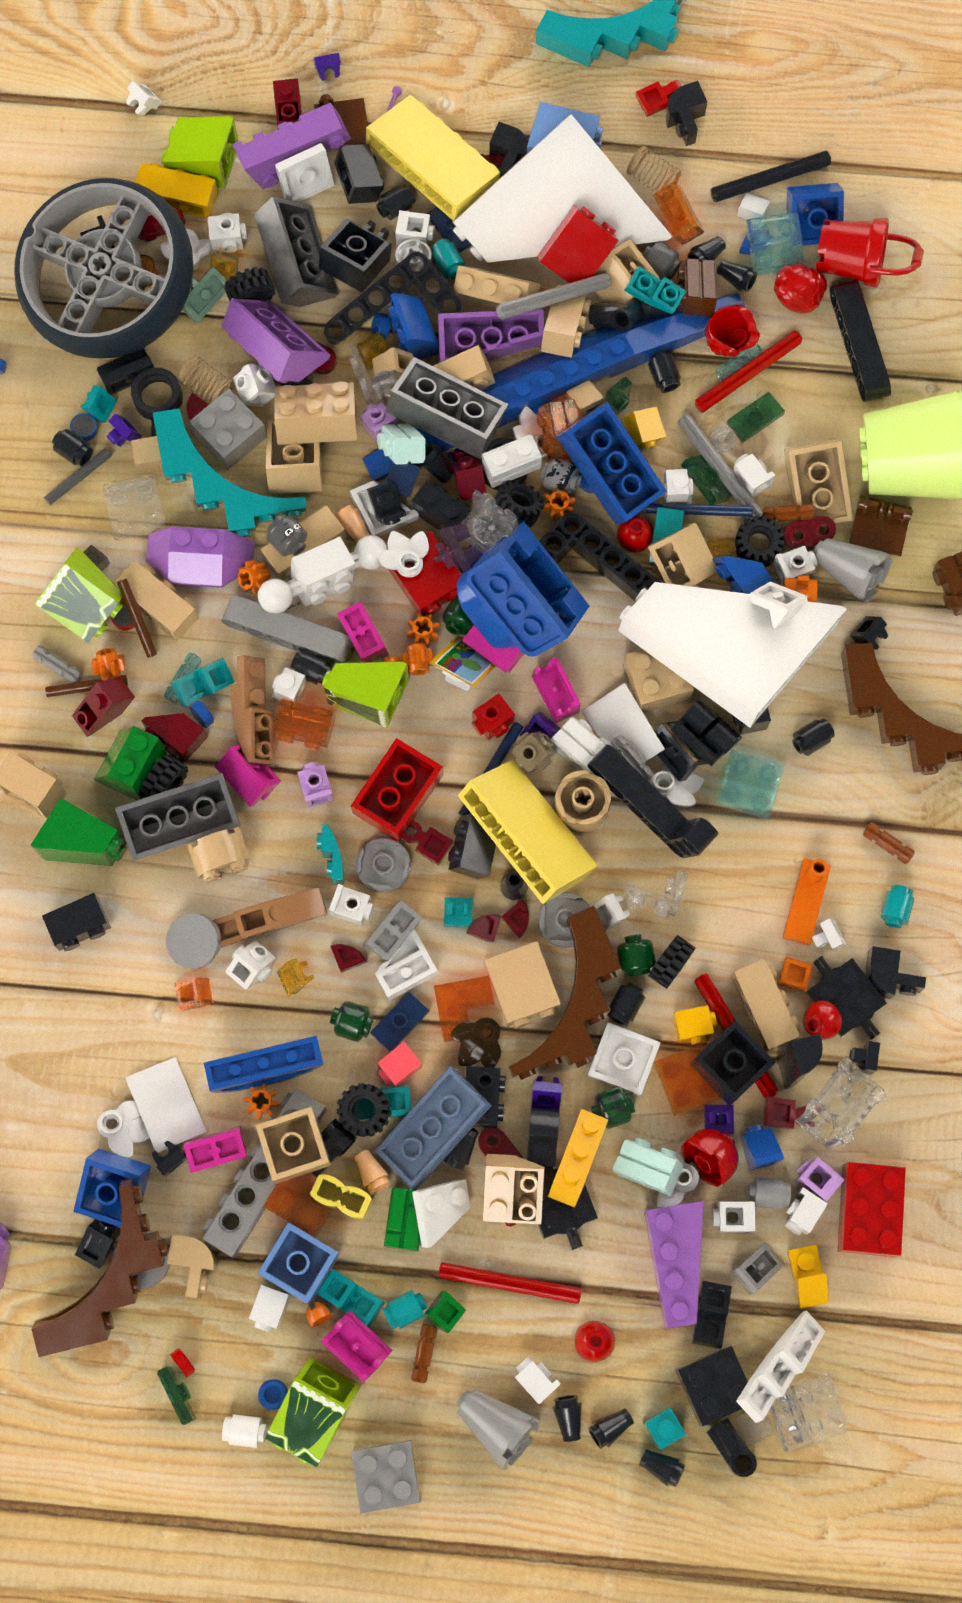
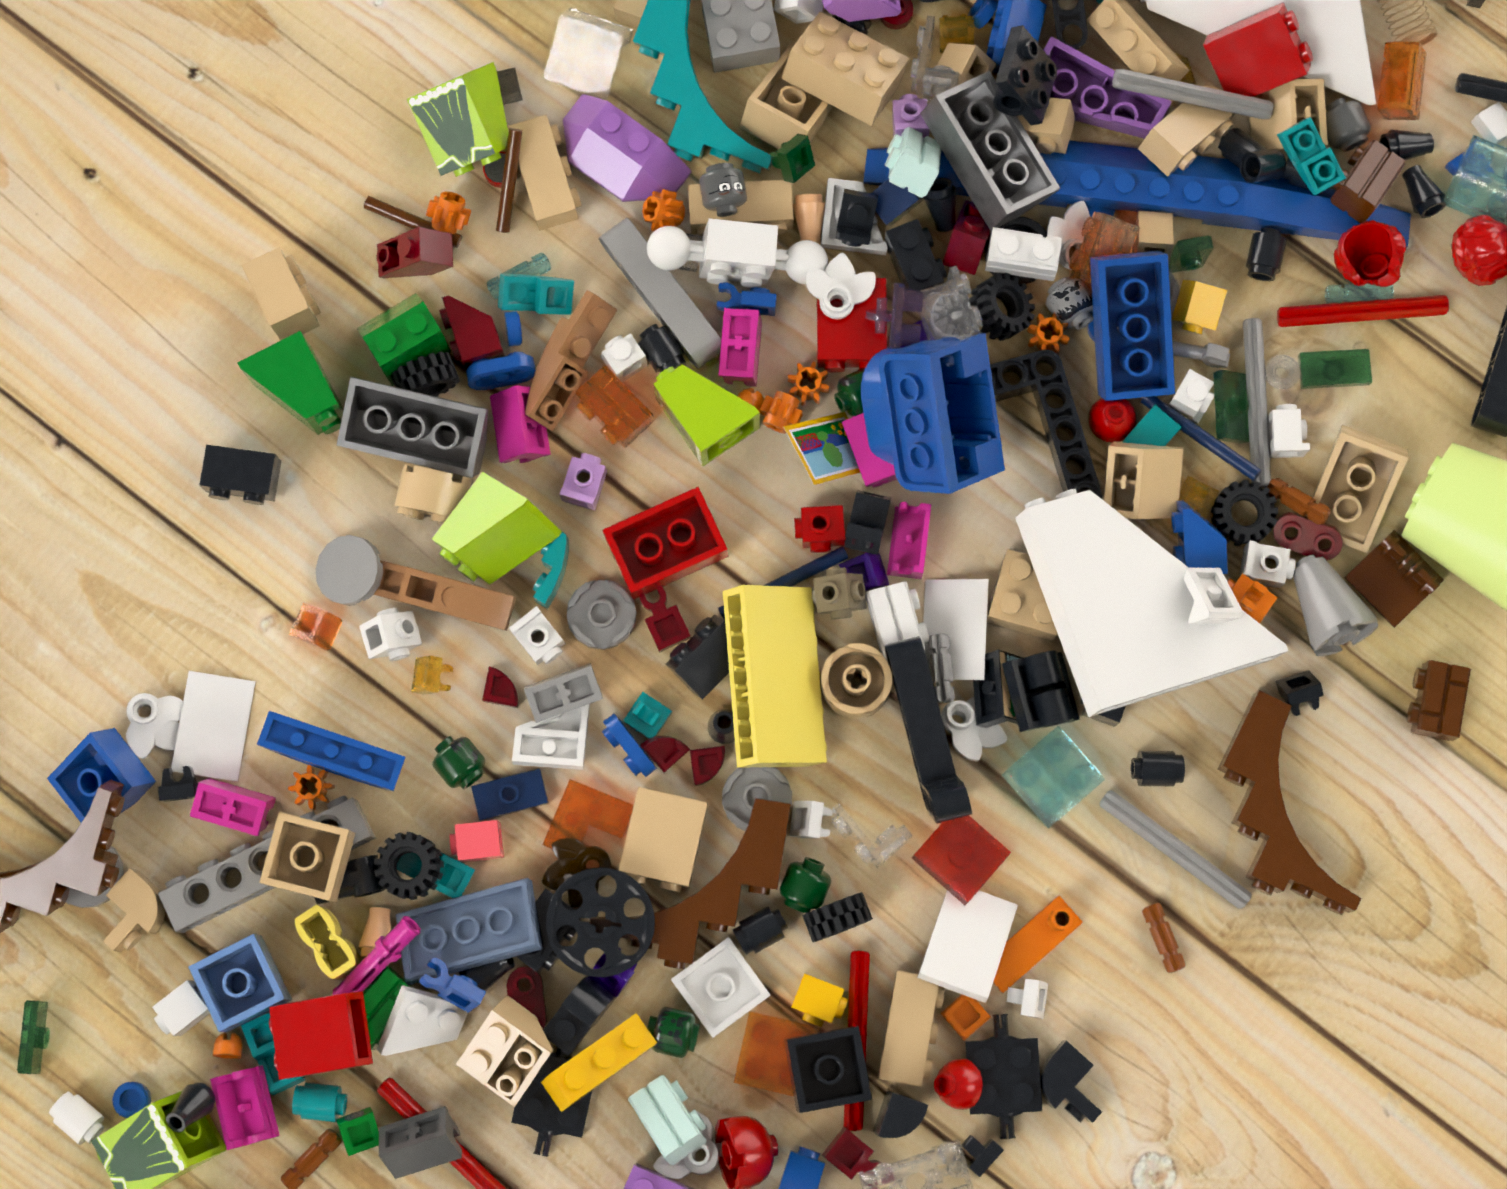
camera: 35 degrees right, 5 degrees up
(56, 664) = (396, 178): light grey axle -> none
(97, 1242) = (51, 826): black bracket -> none
(182, 1362) = (60, 1007): red tile -> none
(212, 746) = (501, 371): none -> blue plate
(277, 851) = (493, 531): none -> lime slope
(297, 1210) = (274, 925): clear orange brick -> none
(320, 489) = (794, 158): none -> dark green tile
(321, 1365) = (193, 1104): none -> black cone
(350, 597) = (755, 299): none -> blue plate
(378, 1261) = (320, 1035): none -> red brick
(387, 1174) = (387, 950): none -> dark pink pin
(440, 347) = (1024, 78): none -> black plate
(447, 935) = (637, 758): none -> blue plate
(452, 1171) = (456, 989): none -> blue plate
(491, 1291) = (419, 1142): none -> dark grey hinge
(520, 1048) = (588, 938): none -> black wedge
(521, 695) = (867, 522): none -> black brick
(673, 454) = (1212, 354): none -> light grey bar
(719, 1118) = (779, 1117): dark purple tile -> none
(725, 872) = (961, 856): none -> clear red tile
(766, 923) = (968, 944): none -> white tile
(858, 782) = (1175, 849): none -> light grey axle
(897, 906) = (1125, 1014): teal brick -> none

